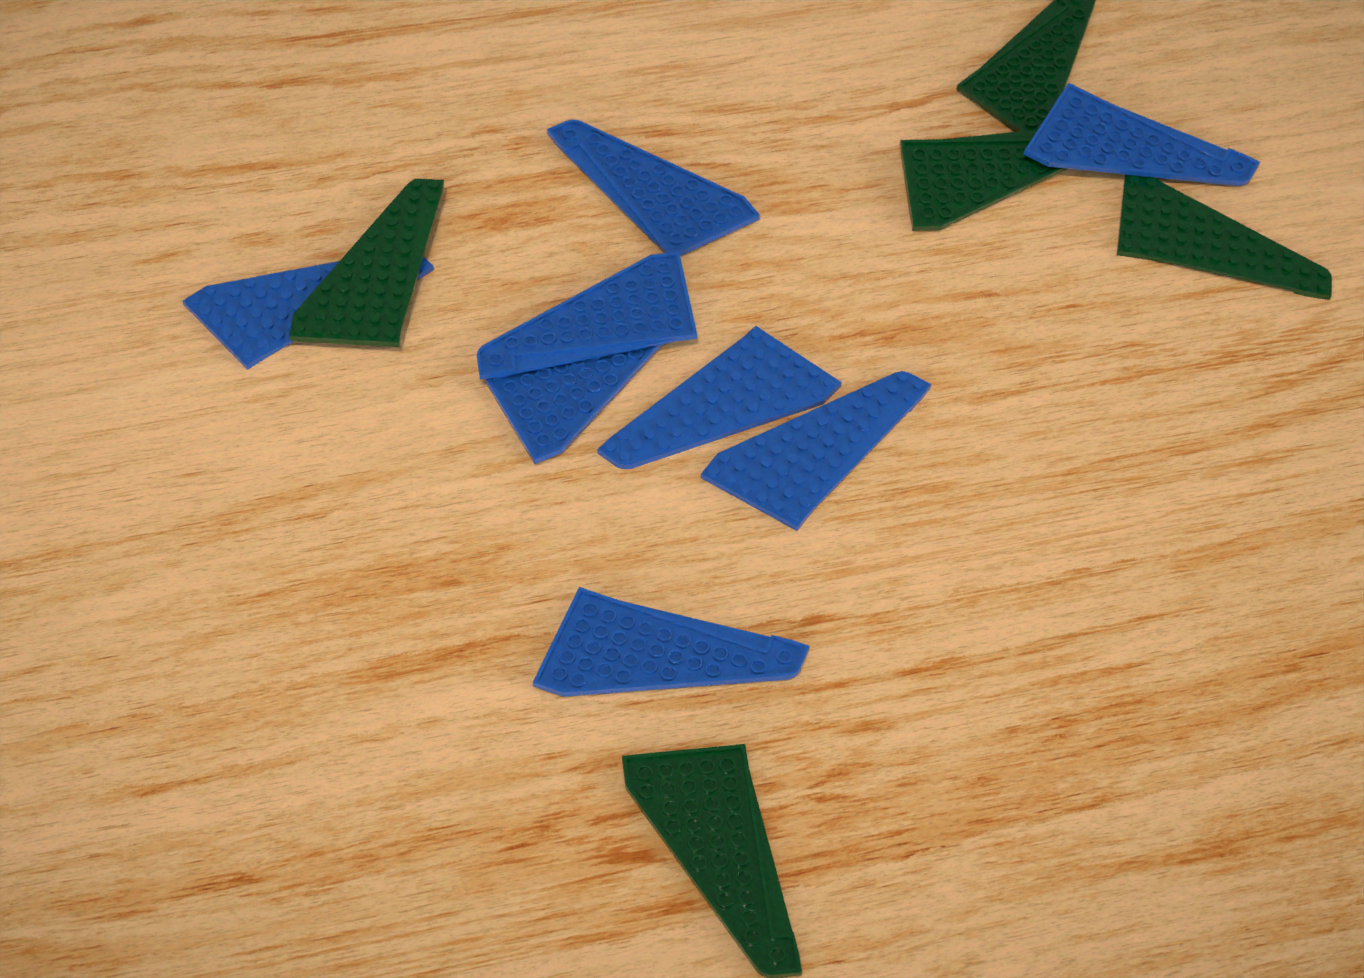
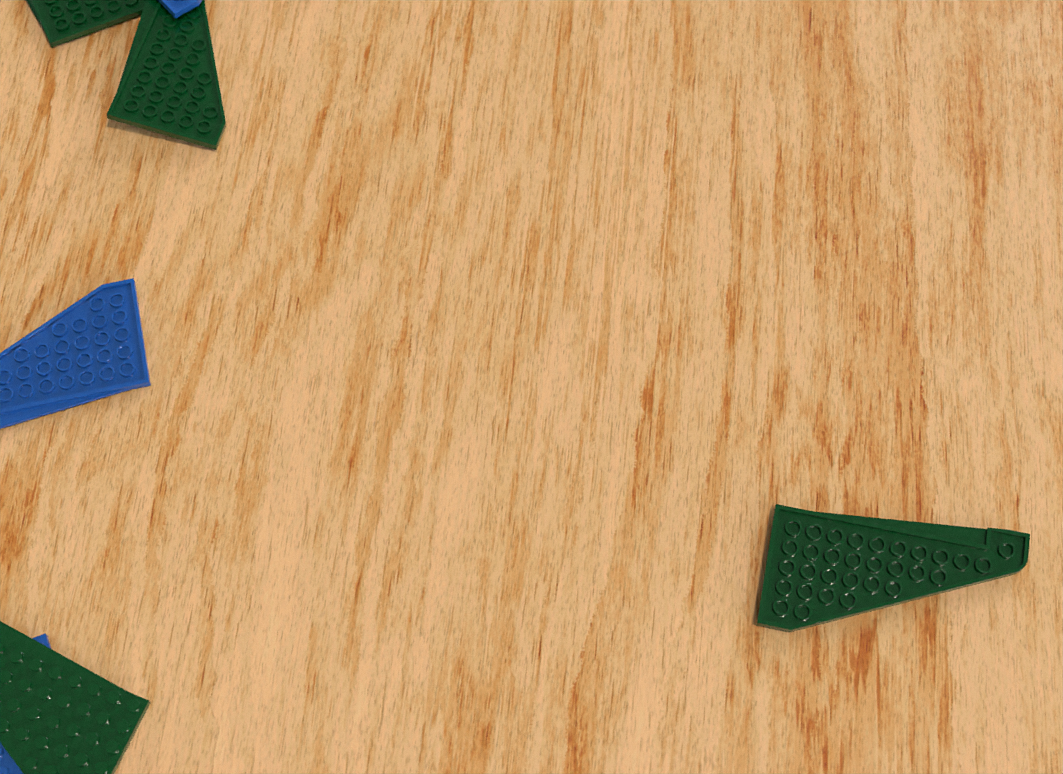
camera: 70 degrees left, 10 degrees up
(560, 401) = (273, 534): blue wing -> none
(620, 314) = (211, 465): blue wing -> none
(632, 647) = (632, 571): blue wing -> none
(733, 393) = (352, 379): blue wing -> none
(804, 459) = (456, 341): blue wing -> none

